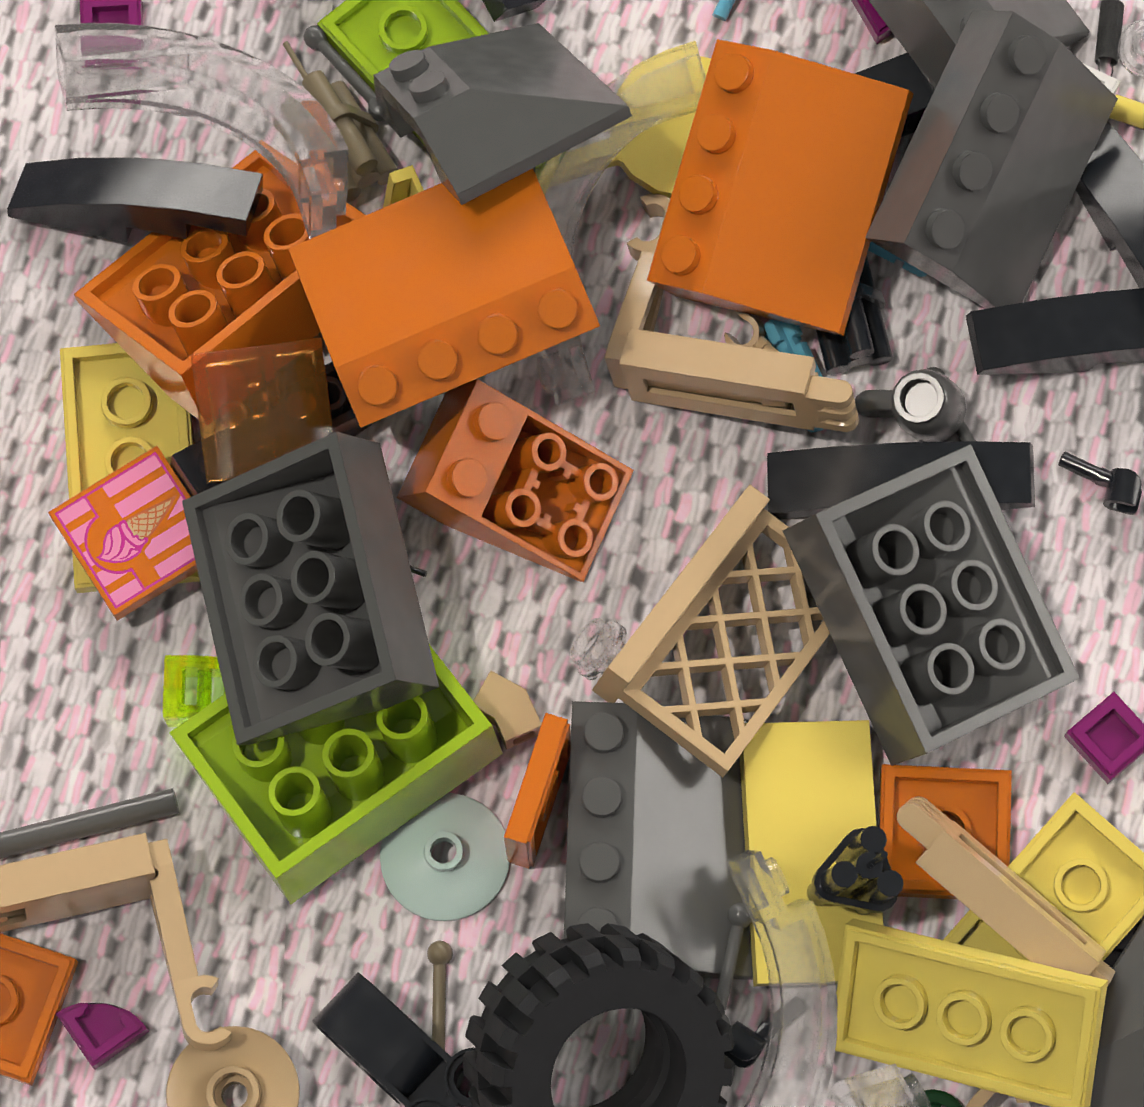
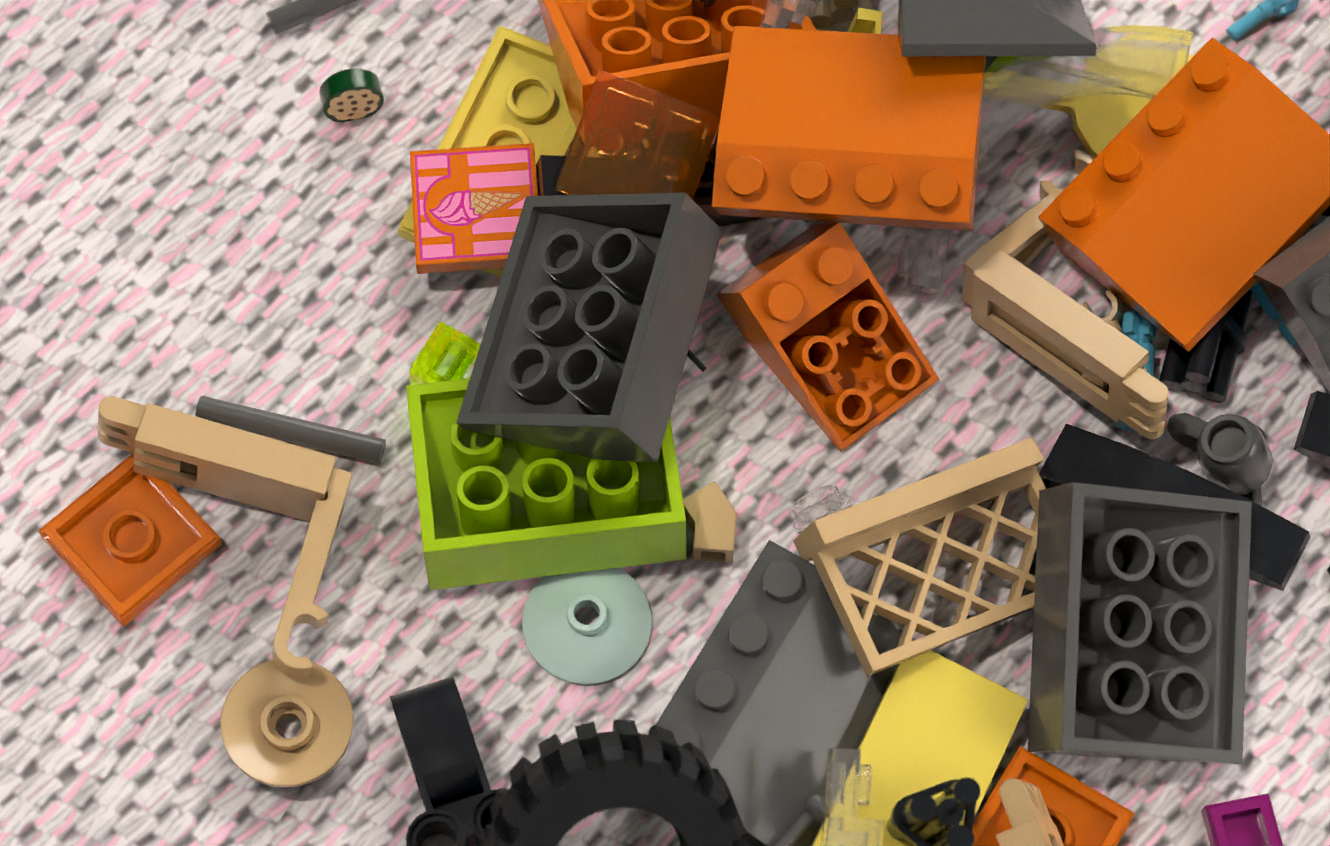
camera: 25 degrees right, 5 degrees down
(101, 1029) = (207, 611): magenta tile -> none
(439, 955) = (534, 704): dark tan hinge -> none
(538, 791) = (694, 603): orange tile -> none

